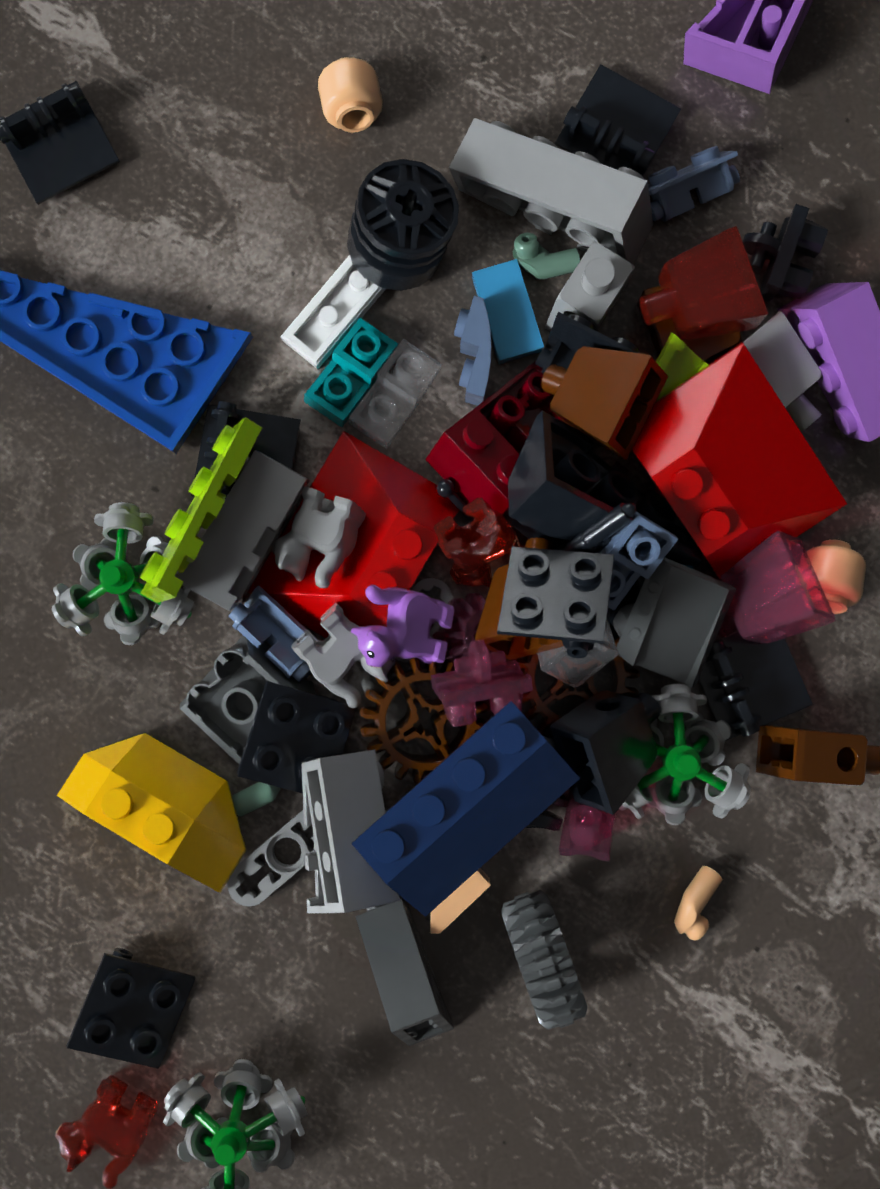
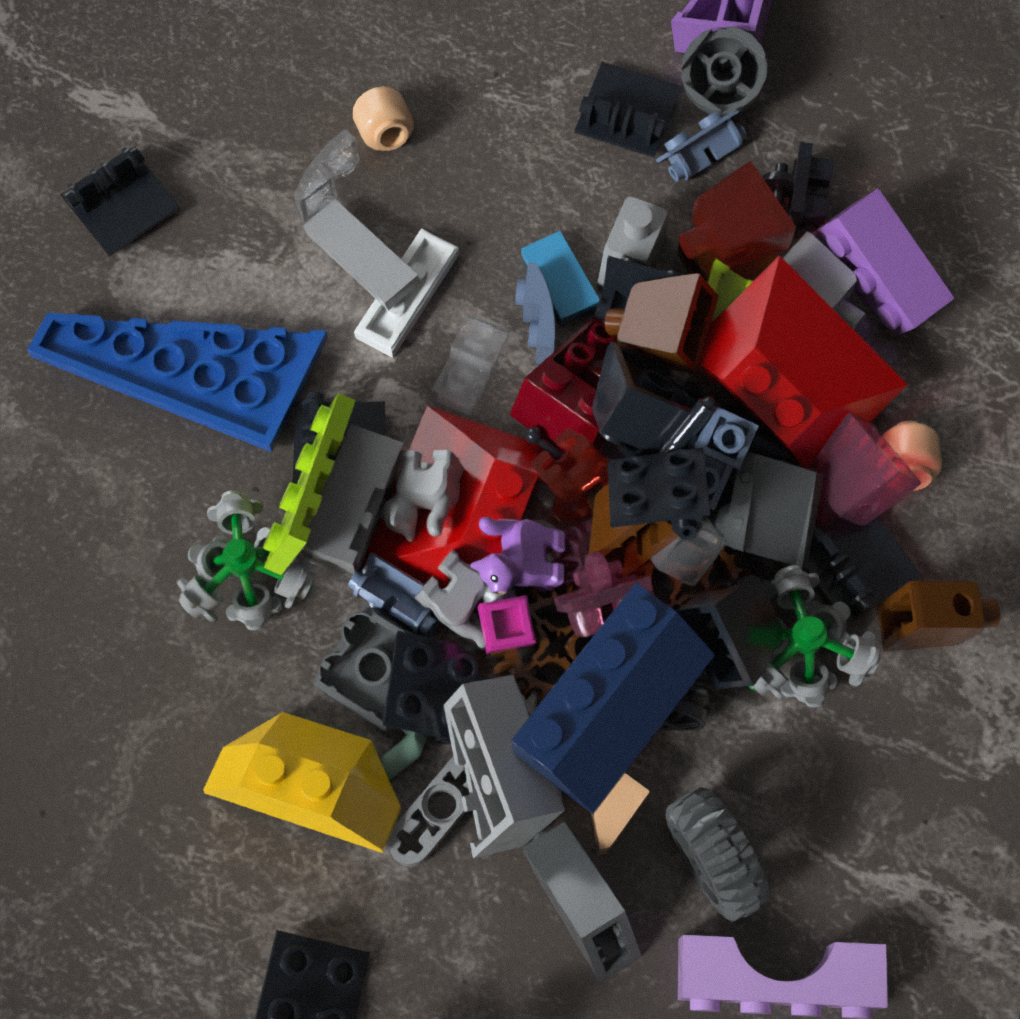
camera: 15 degrees left, 15 degrees down
(265, 164) = (318, 183): none -> clear slope
(302, 250) = (362, 254): none -> light grey tile
(350, 372) = (424, 353): teal slope -> none
(377, 696) = (506, 624): none -> dark pink tile
(399, 248) = (451, 214): black wheel -> none
(540, 261) = (580, 230): sand green arm -> none
(554, 188) = (581, 163): light grey wedge -> none
(587, 831) = (733, 717): clear pink hips -> none
(641, 1093) = (846, 978): none -> lavender arch
(693, 902) = (851, 781): light nougat arm -> none
(731, 104) = (724, 71): none -> dark grey cylinder

